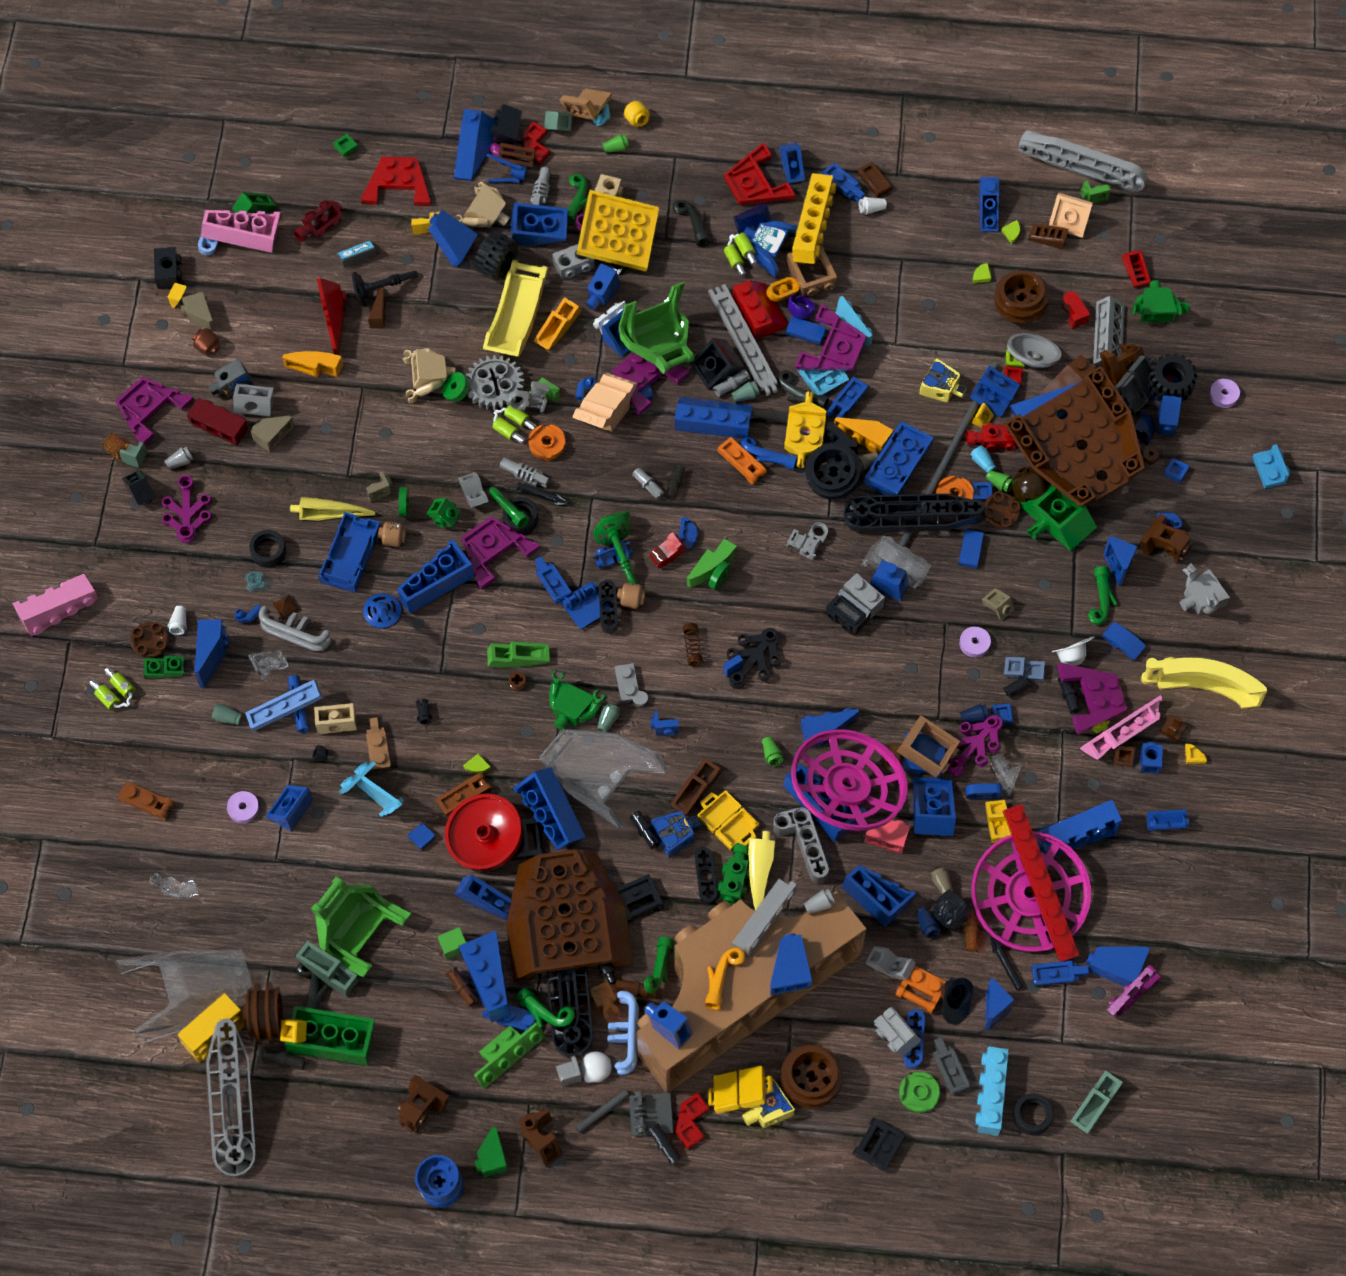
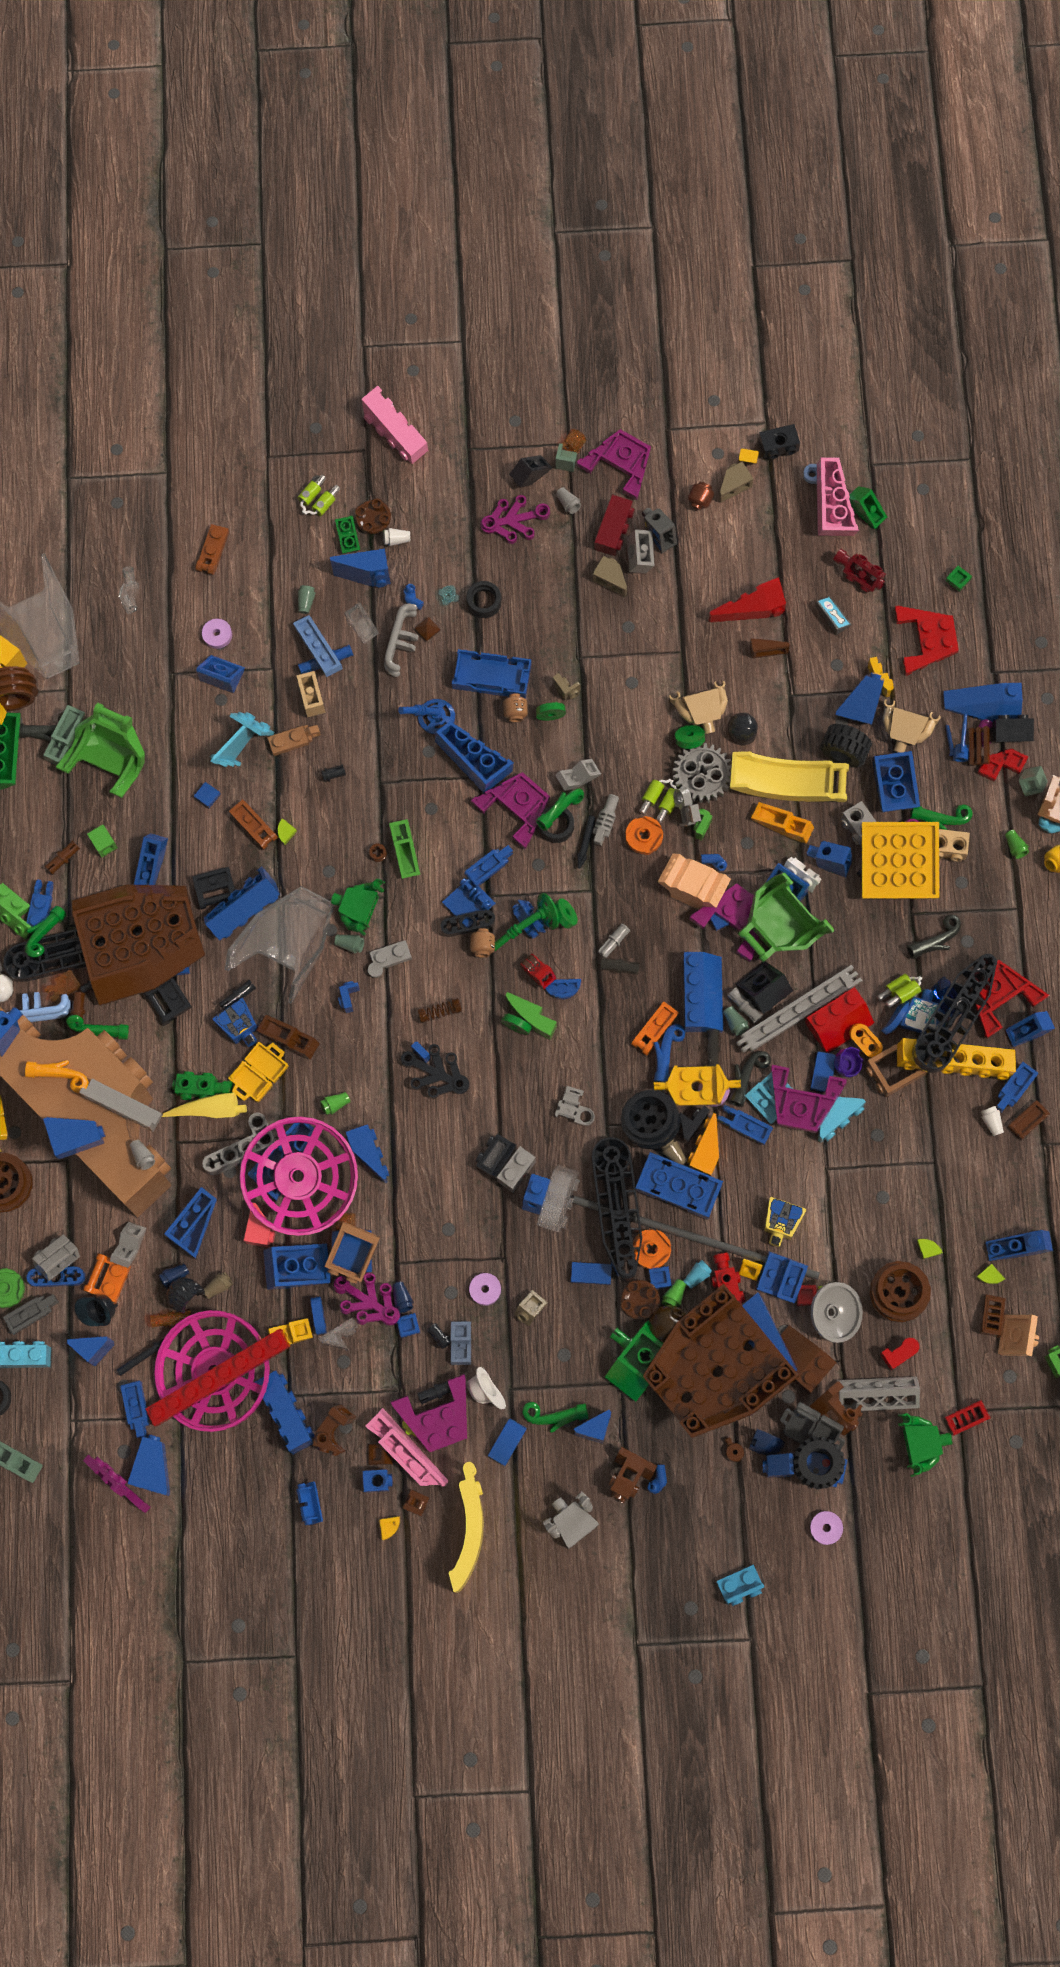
camera: 85 degrees right, 10 degrees up
(313, 362) = (694, 600): light orange slope -> none
(320, 753) = (278, 688): black hinge -> none
(324, 509) = (536, 641): light yellow piece -> none
(363, 288) = (786, 630): black dish -> none
(444, 512) = (545, 751): green brick -> none
(455, 343) = (743, 728): none -> black hair
(483, 832) = (212, 847): red dish -> none
(486, 970) = (71, 875): blue wedge -> none
(541, 187) = (942, 778): light grey hinge -> none
(702, 889) = (210, 1050): black beam -> none
(775, 206) = (940, 1039): none -> black beam
(1091, 786) = (337, 1416): none -> reddish brown tile
(1176, 470) = (721, 1482): blue tile -> none

